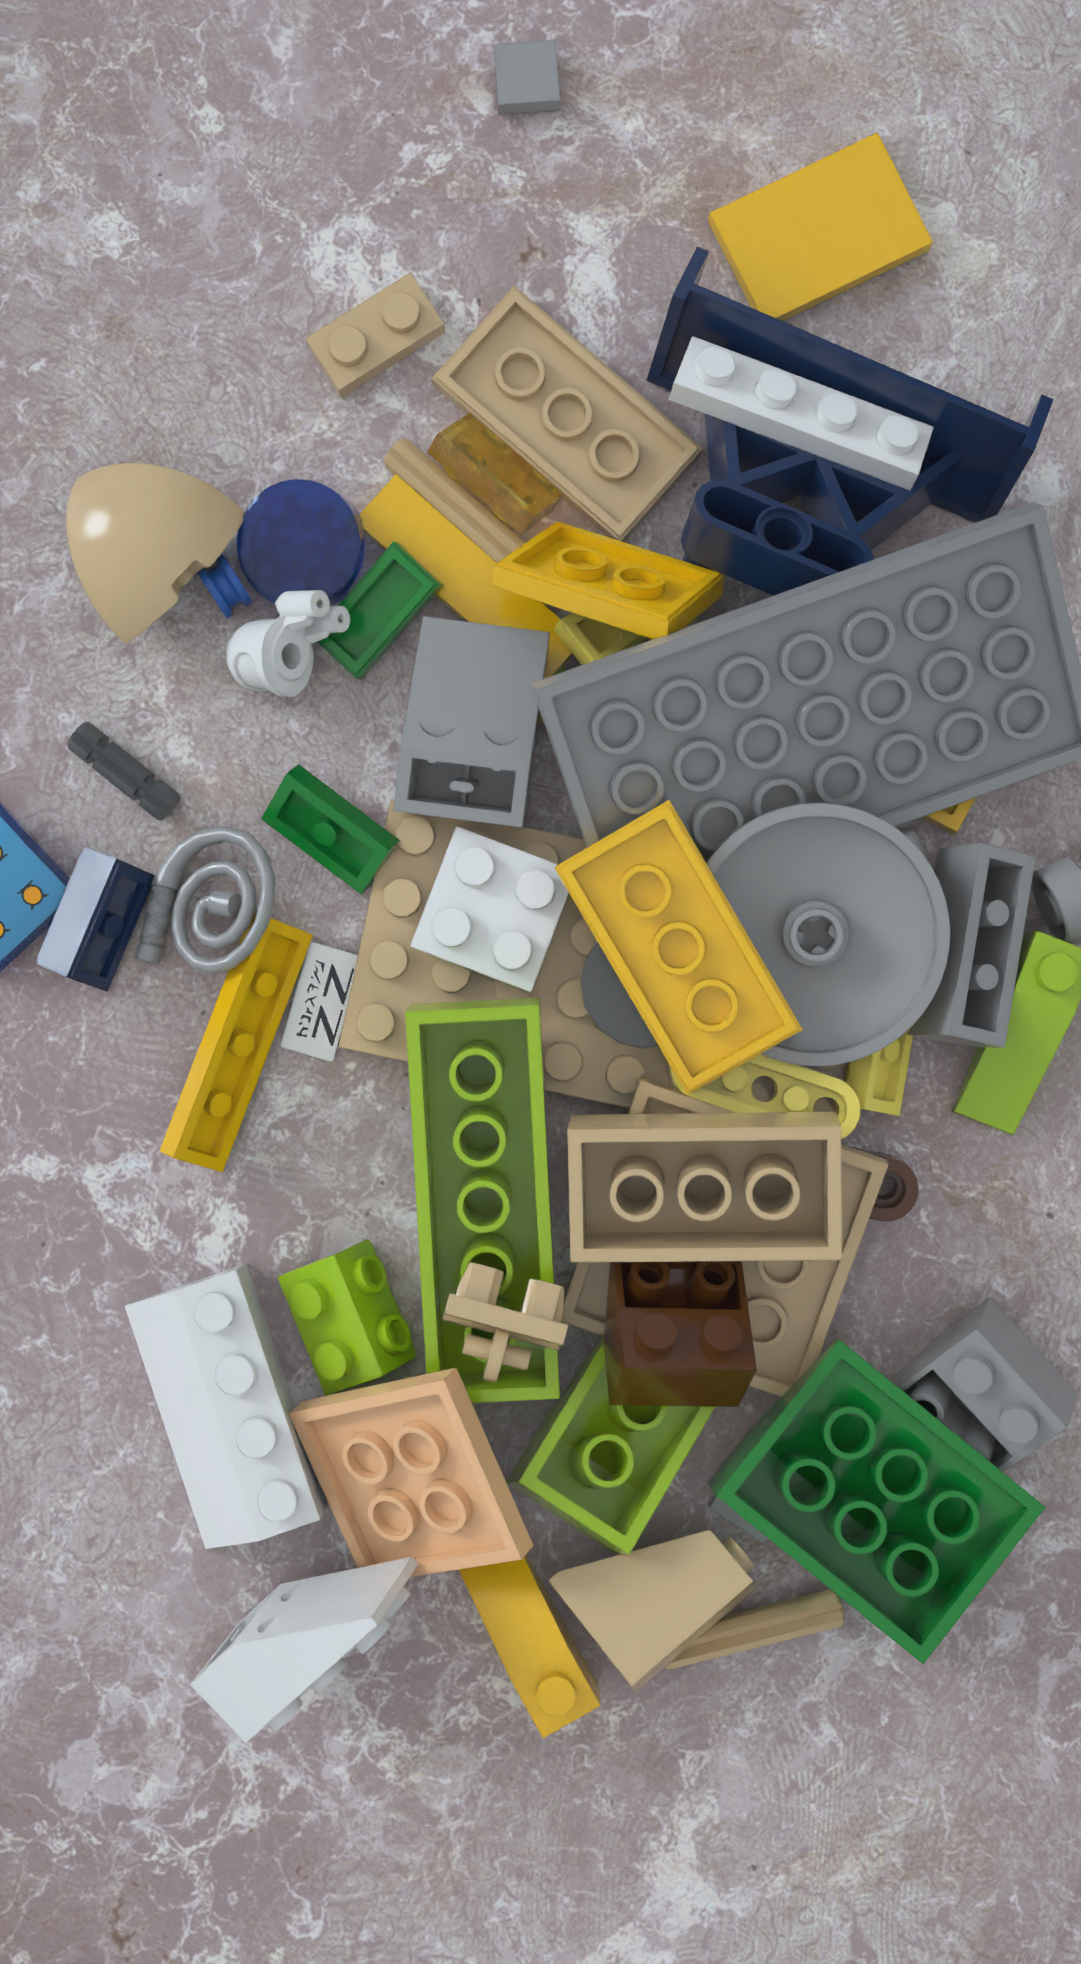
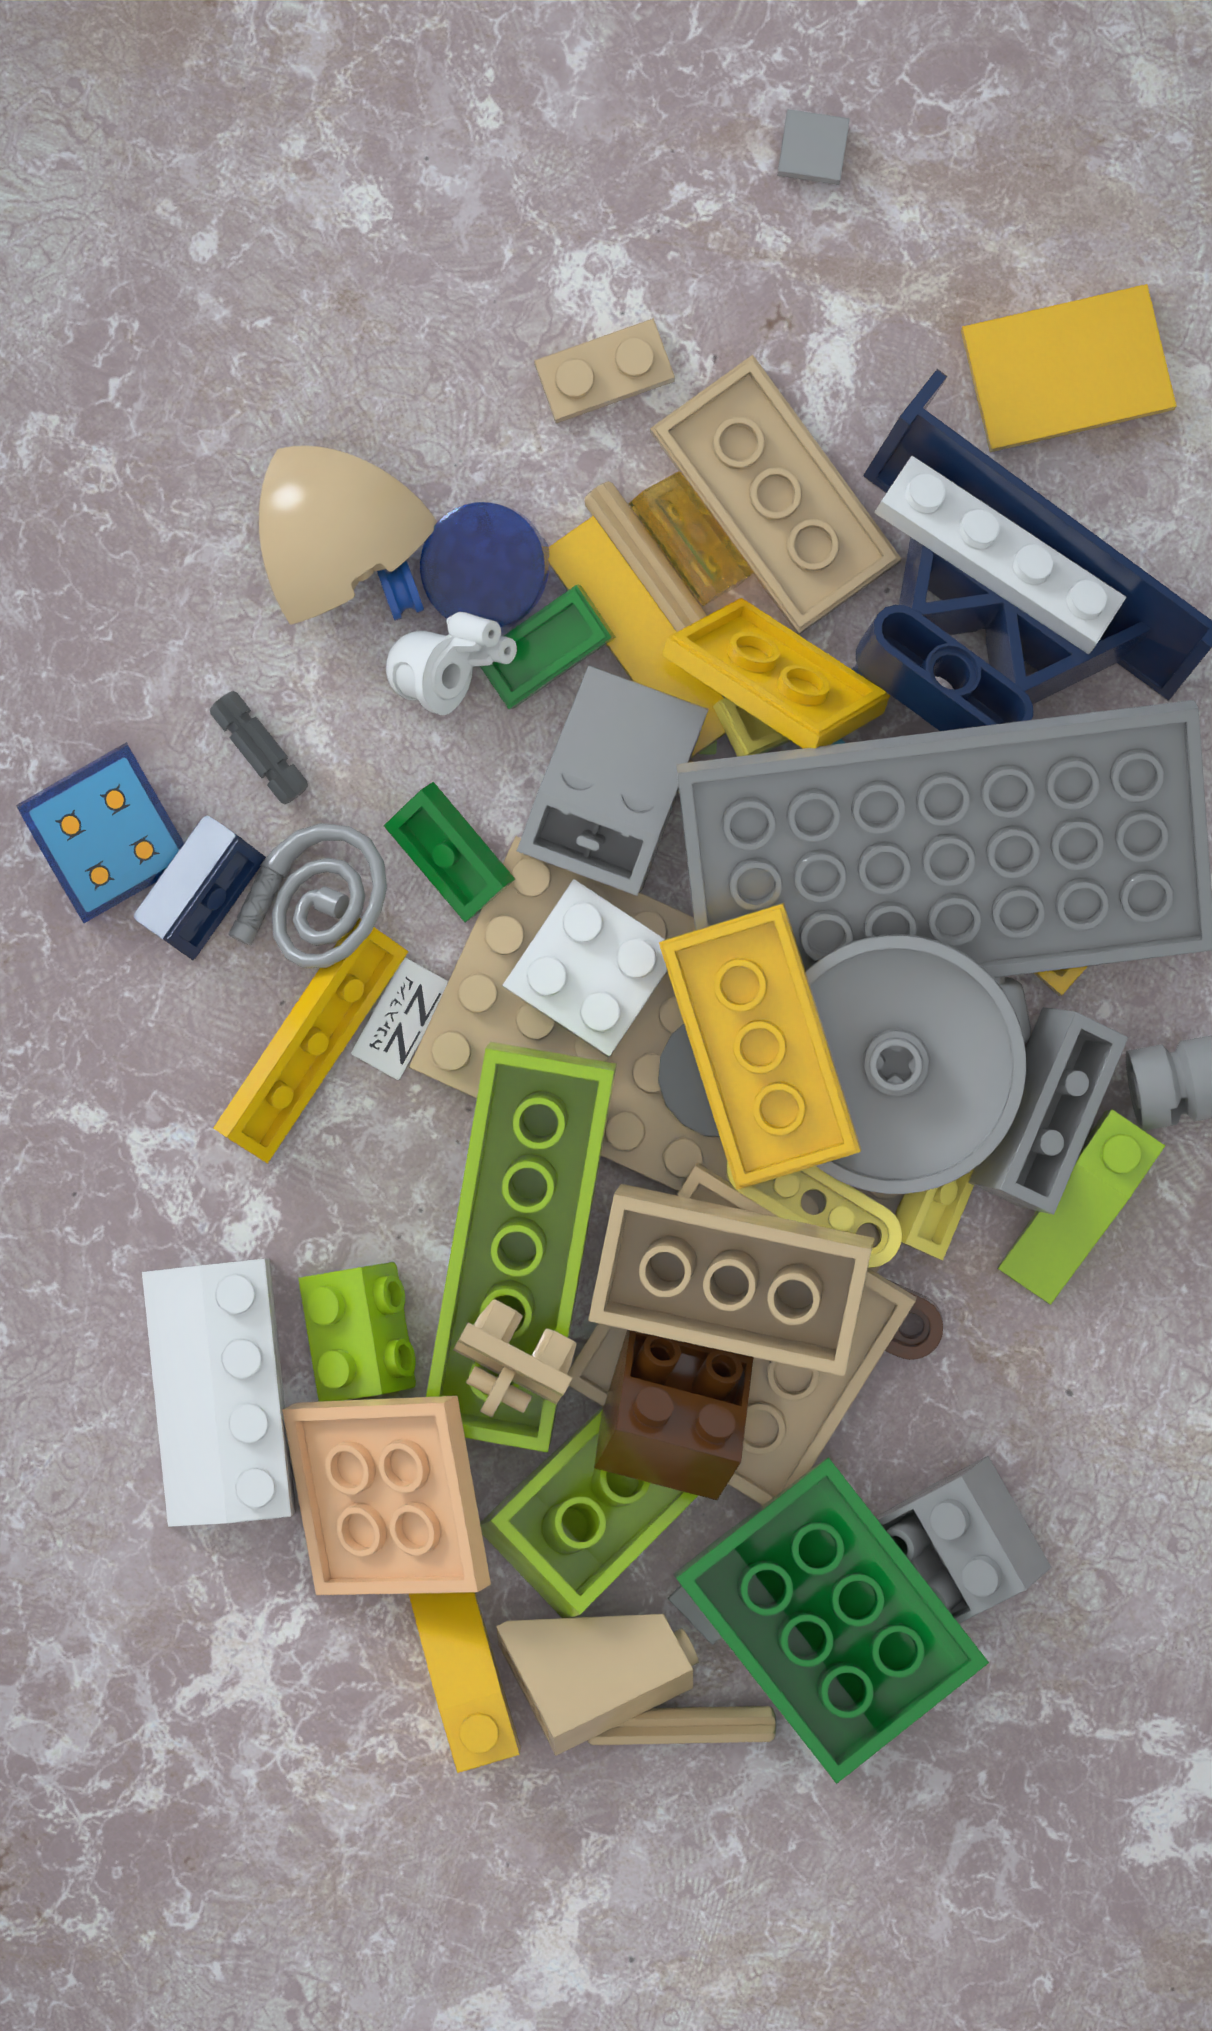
camera: 10 degrees right, 0 degrees up
(299, 1643) = (246, 1628): white slope -> none

